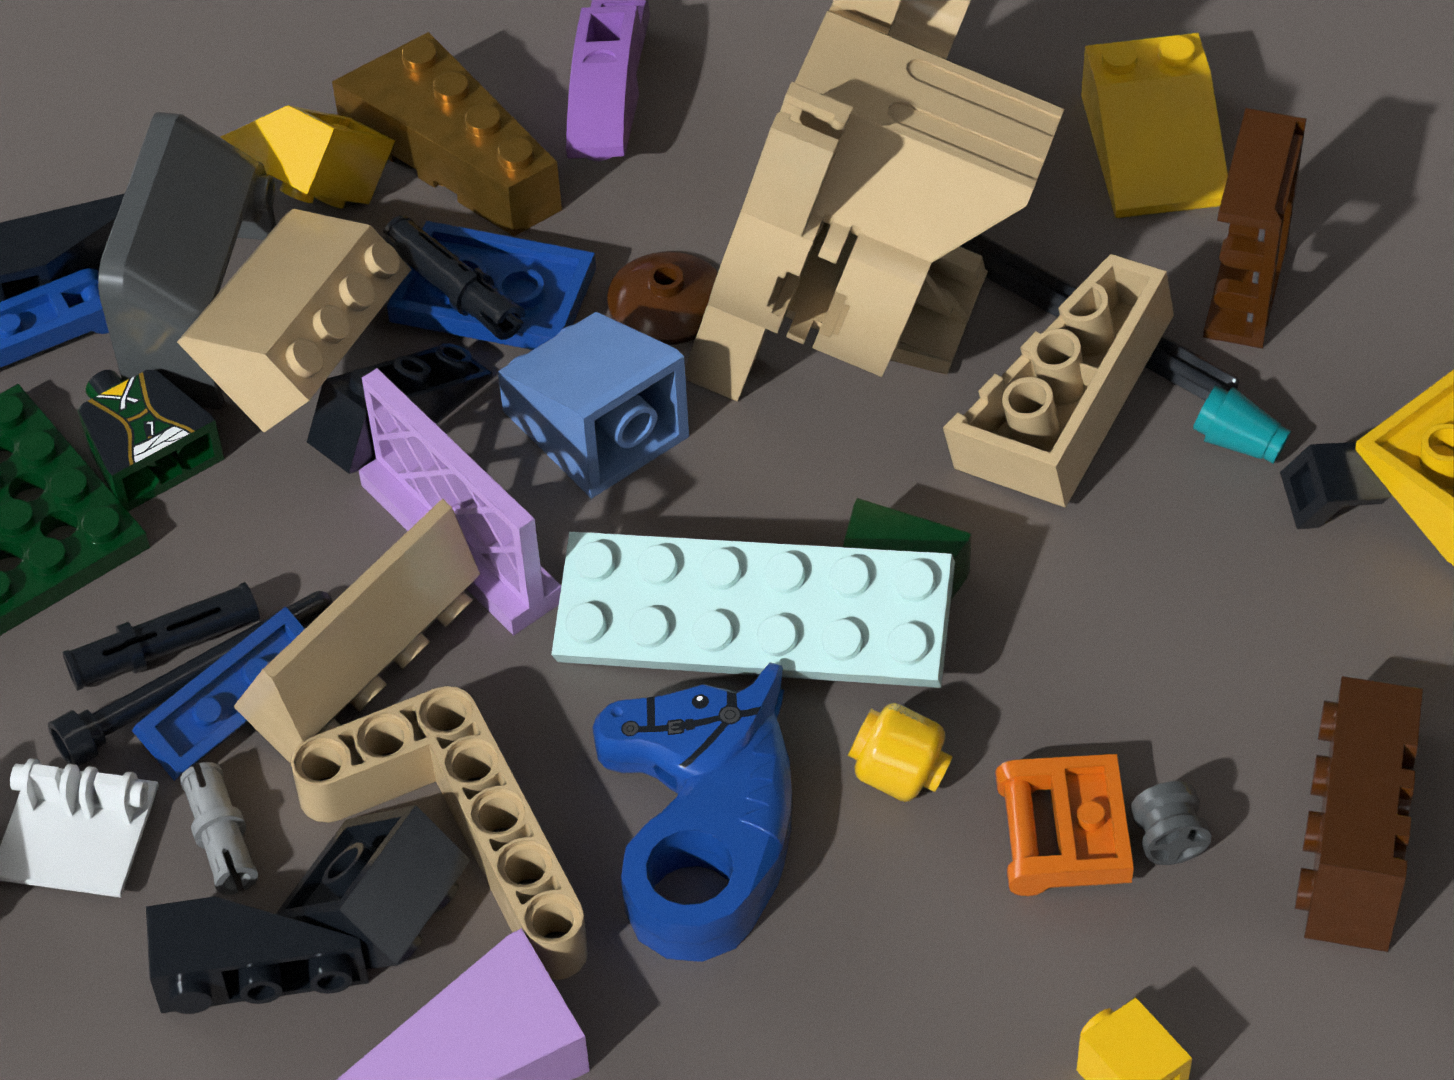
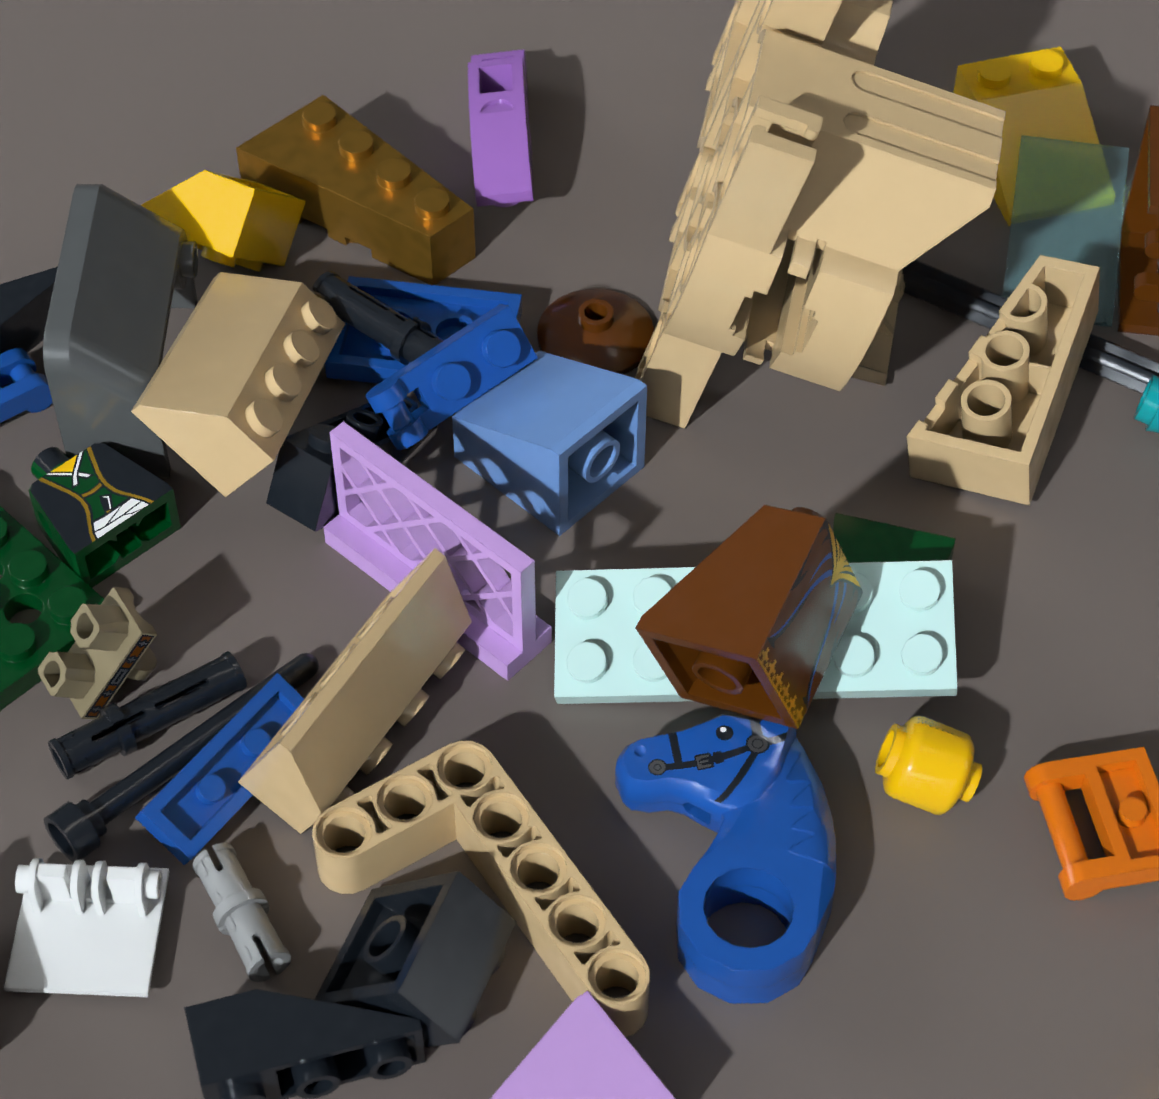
camera: 10 degrees left, 0 degrees up
(129, 571) = (107, 649): none -> dark tan hips
(502, 330) = (452, 375): none -> blue plate
(741, 591) = (757, 617): none -> reddish brown slope
(1170, 214) = (1068, 209): none -> clear light blue window

